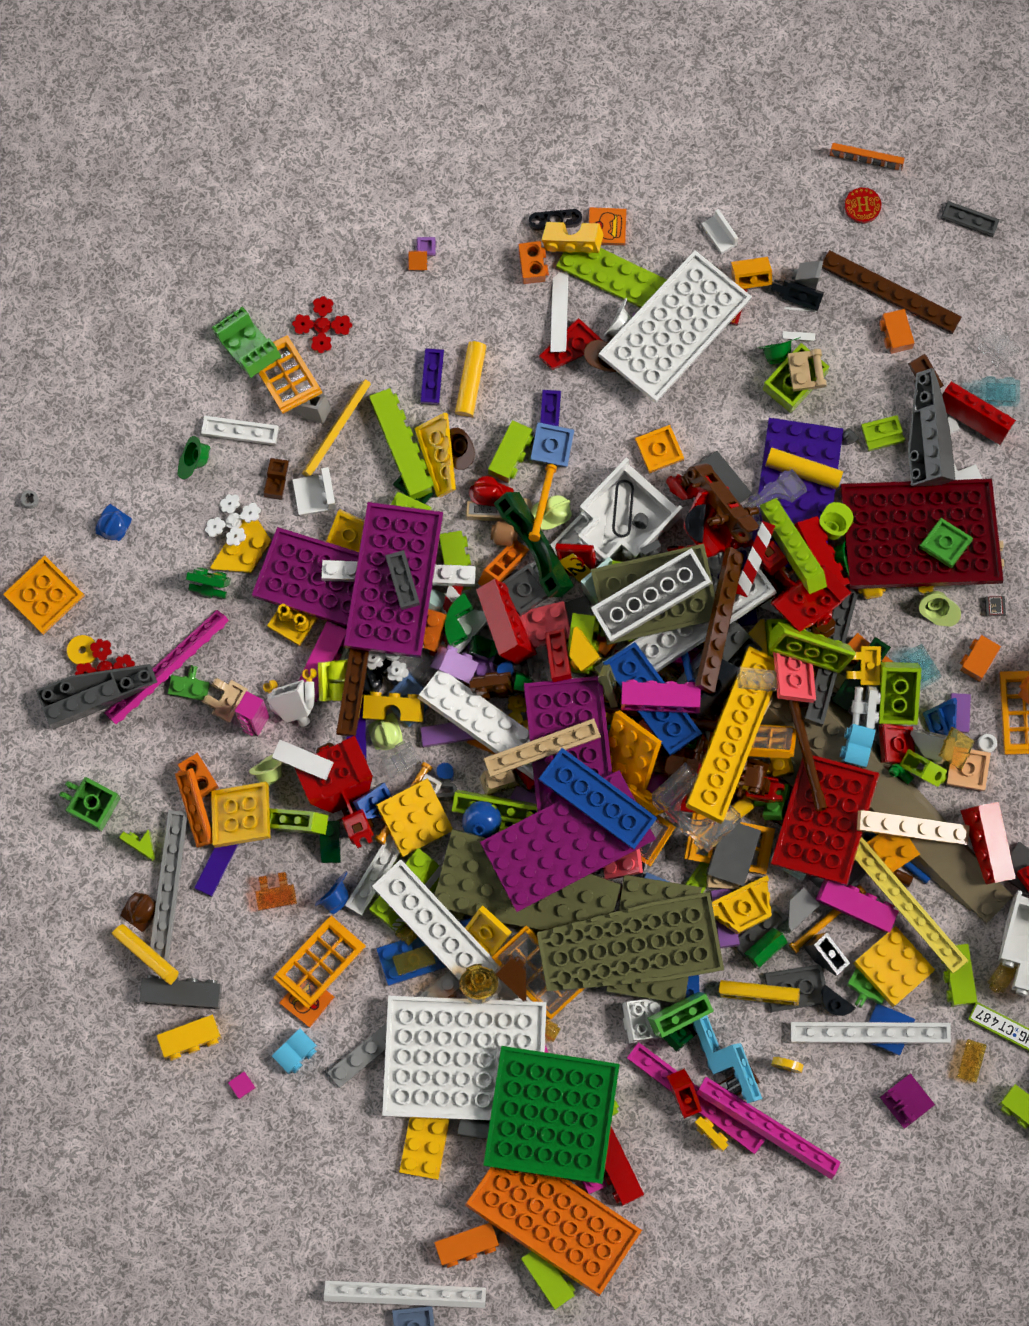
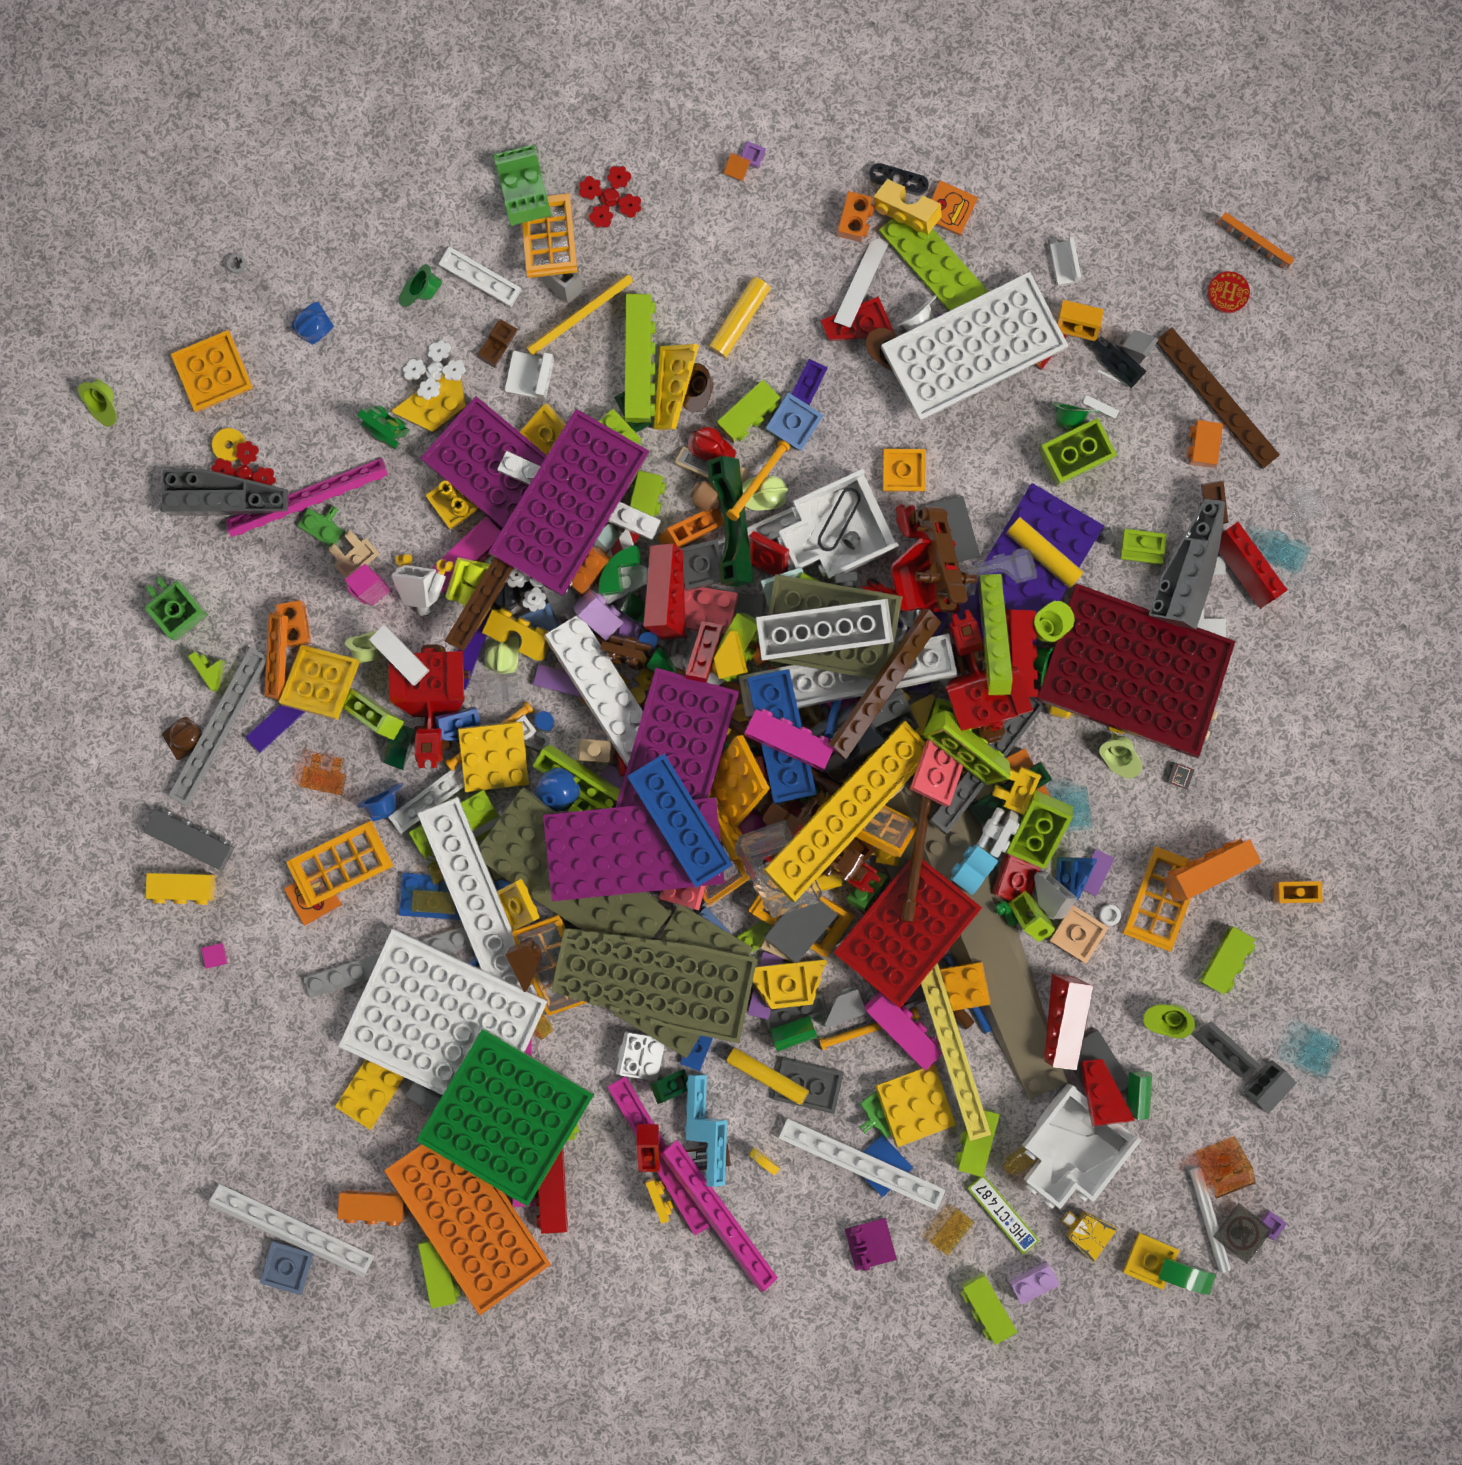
camera: 25 degrees right, 10 degrees up
(145, 954) = (167, 786): yellow brick -> none
(295, 1051) = (279, 944): medium azure brick -> none
(402, 580) = (575, 508): dark grey plate -> none
(432, 376) = (701, 298): dark purple plate -> none
(478, 983) = (485, 956): clear yellow cone -> none
(541, 748) = (646, 743): tan plate -> none
(574, 567) = (763, 563): yellow sticker -> none
(611, 690) = (743, 705): olive plate -> none
(680, 1014) = (676, 1069): bright green brick -> none
(696, 522) = (904, 569): black plate -> none
(755, 558) = (949, 632): sticker -> none
(757, 679) = (897, 760): clear plate -> none
(800, 370) = (1084, 447): tan plate -> none
(826, 953) = (852, 1065): black slope -> none
(835, 1003) = (840, 1118): black plate -> none
(912, 827) = (993, 976): plate -> none
(946, 543) = (1157, 692): bright green tile -> none
(956, 748) = (1074, 911): clear yellow piece -> none
(970, 219) = (1335, 352): dark grey tile -> none
(980, 658) = (1140, 824): orange brick -> none

